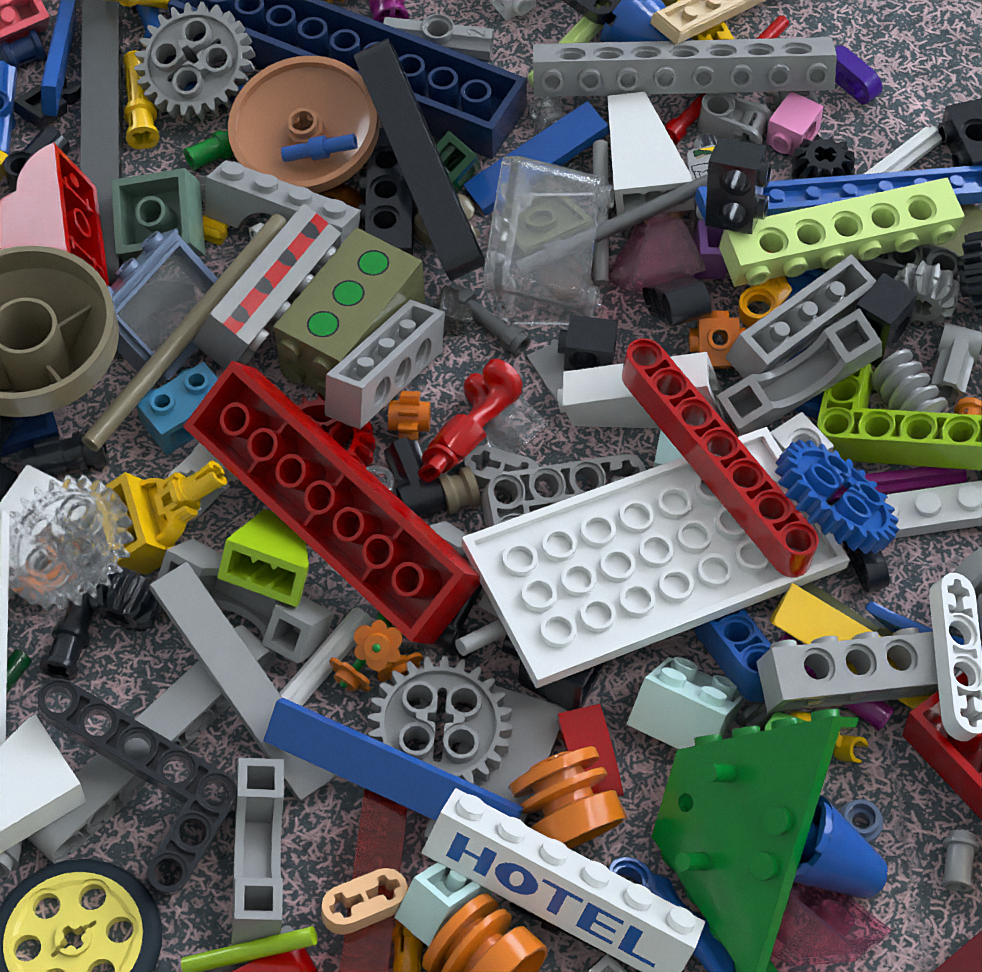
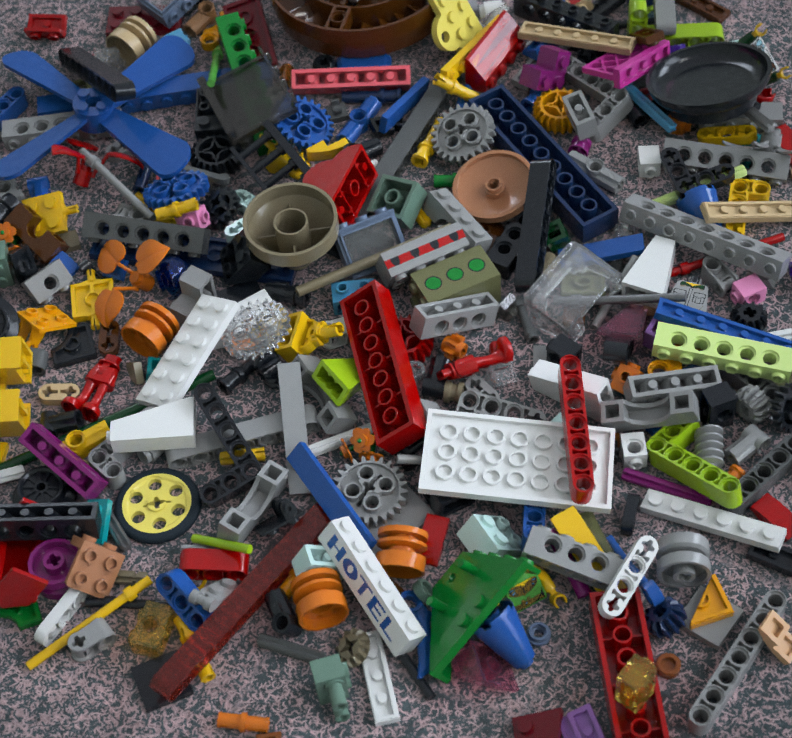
camera: 35 degrees right, 5 degrees down
(147, 795) = (225, 459): none -> yellow axle
(318, 852) = (284, 514): none -> black hinge
(319, 147) = (493, 200): blue bar -> none
(360, 896) = (281, 546): light nougat beam -> none
(637, 847) = (422, 589): none -> sand green tile
(737, 185) = (669, 302): black brick -> none
(858, 515) = (623, 476): blue gear -> none
(960, 848) = (573, 675): light grey pin -> none

